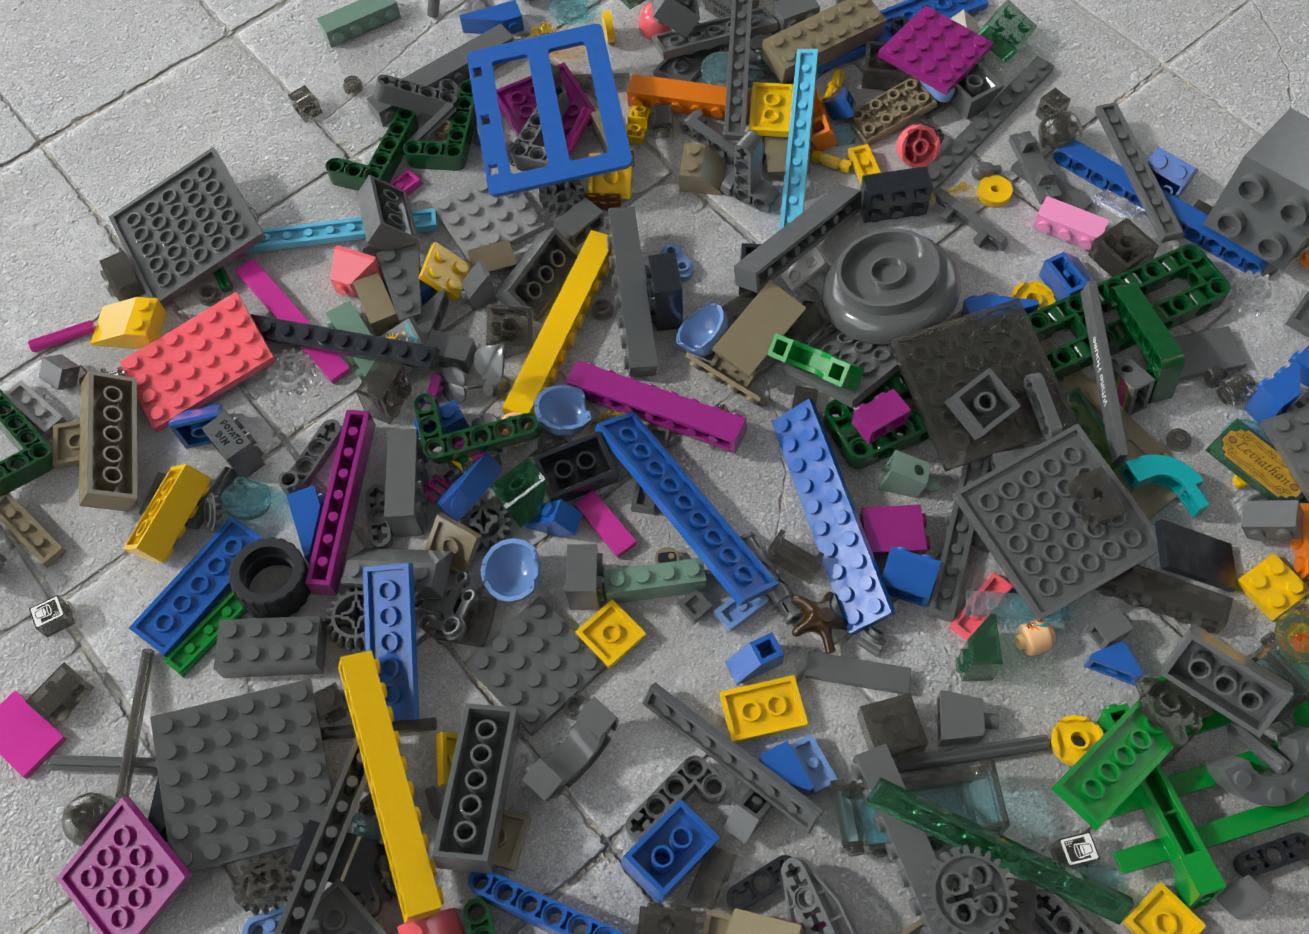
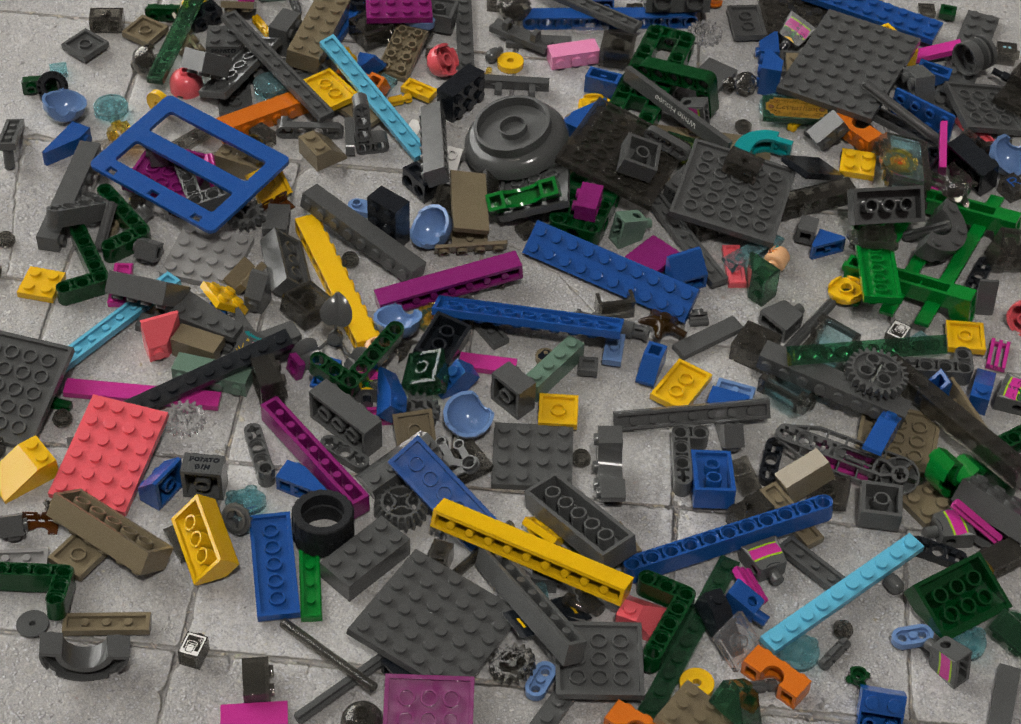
camera: 50 degrees left, 15 degrees down
(333, 145) = (40, 284): none -> yellow plate
(441, 175) = (147, 250): none -> dark grey brick

